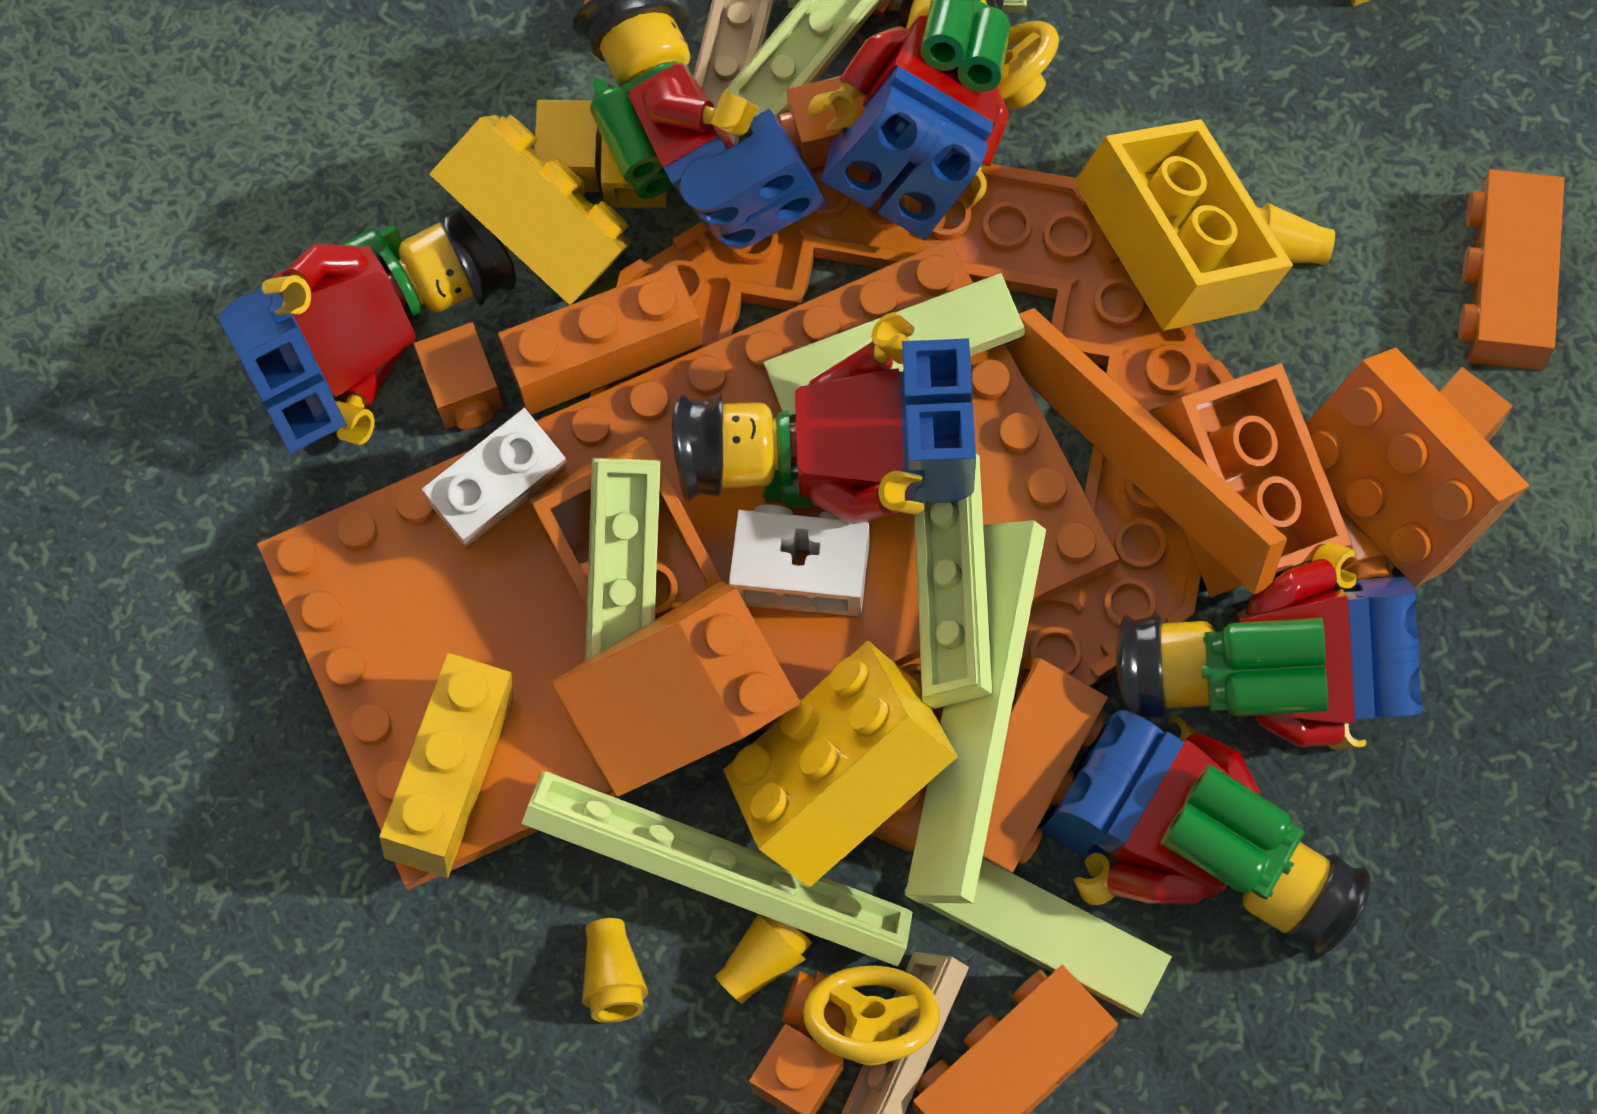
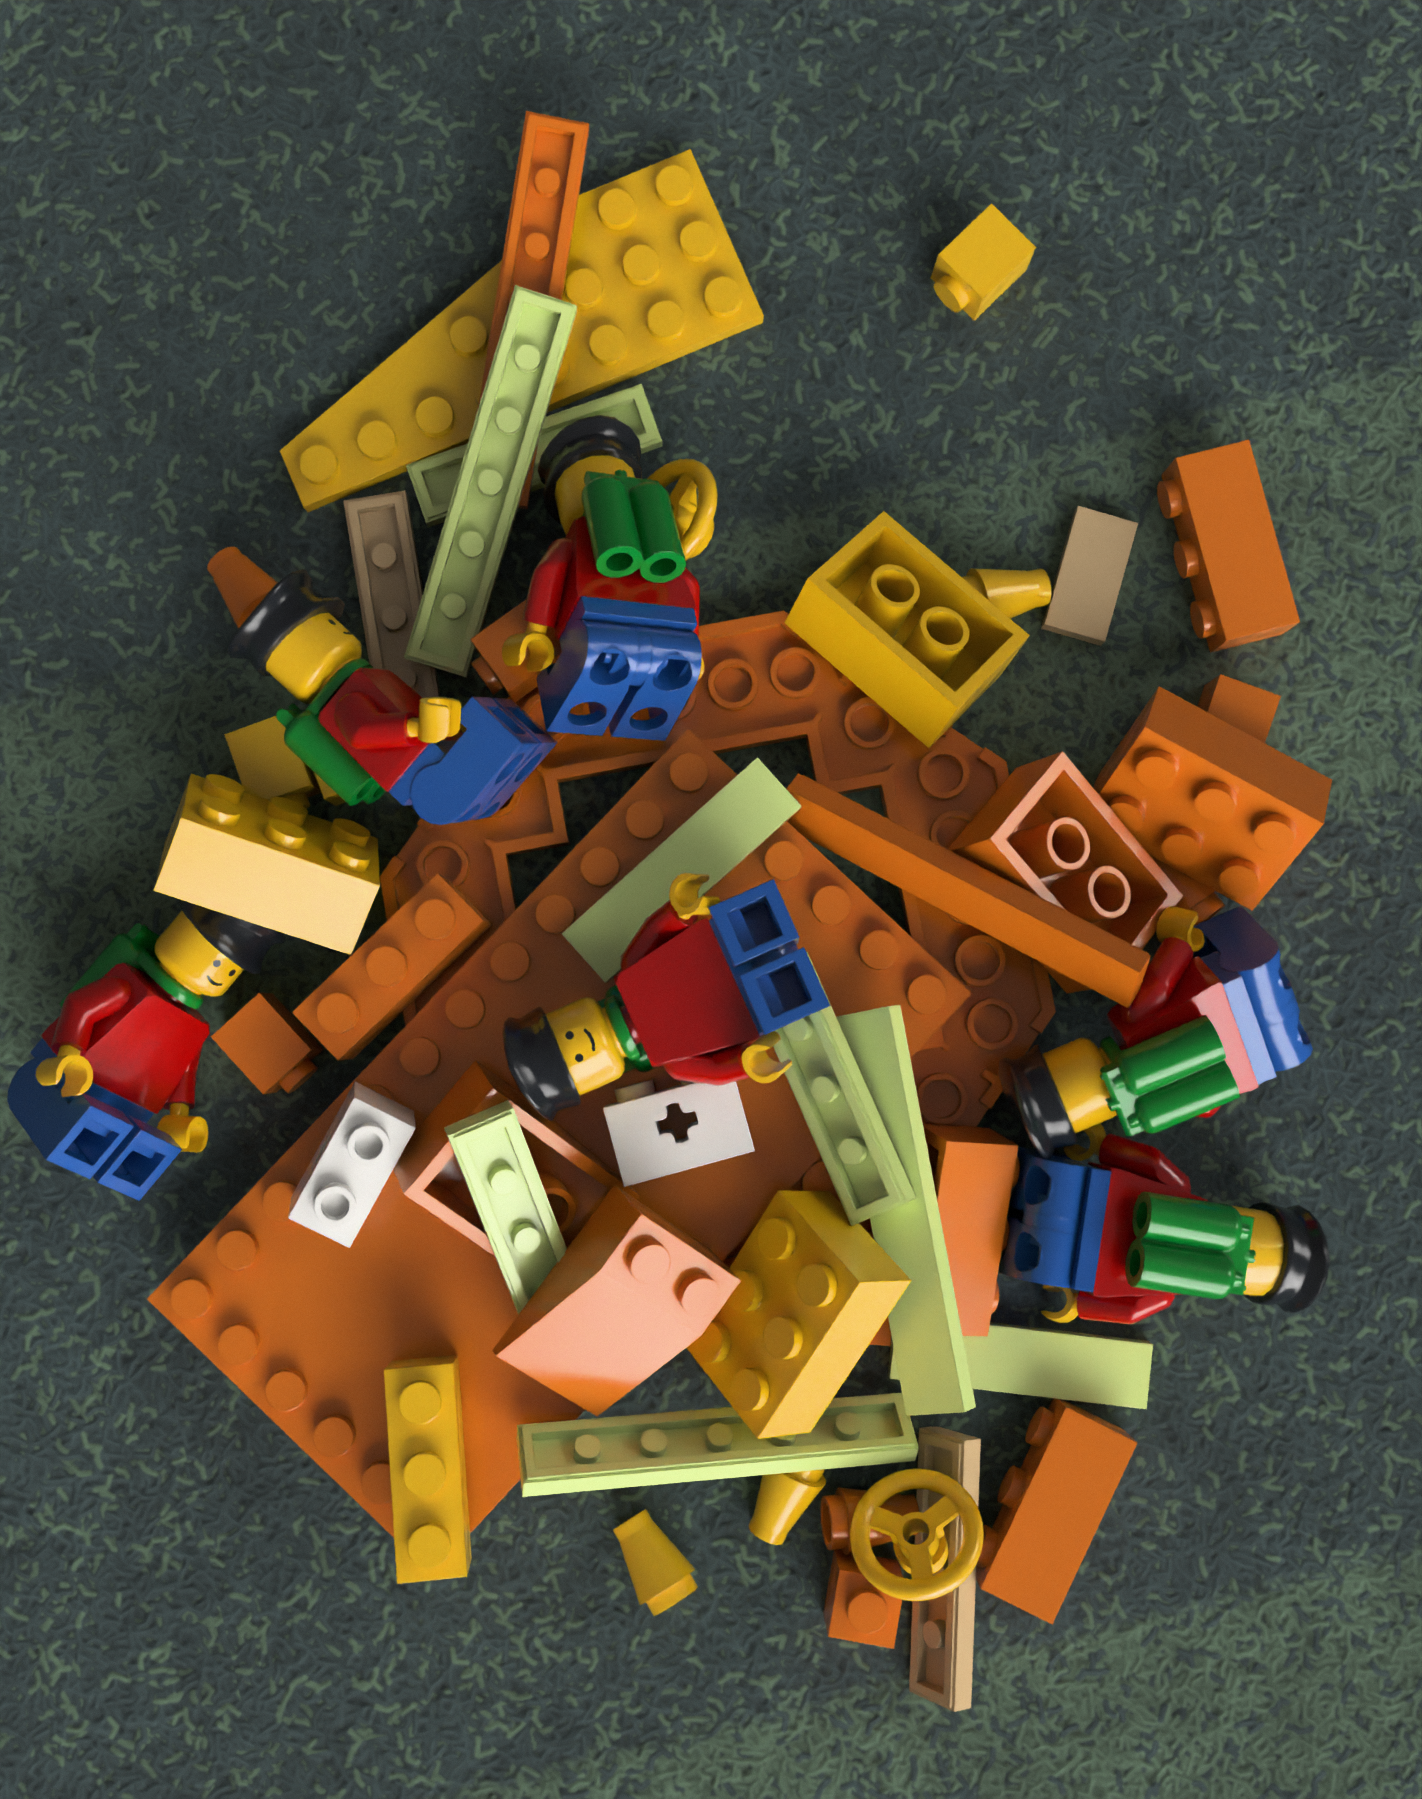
camera: 30 degrees left, 15 degrees up
(1376, 253) = (1089, 575): none -> tan tile

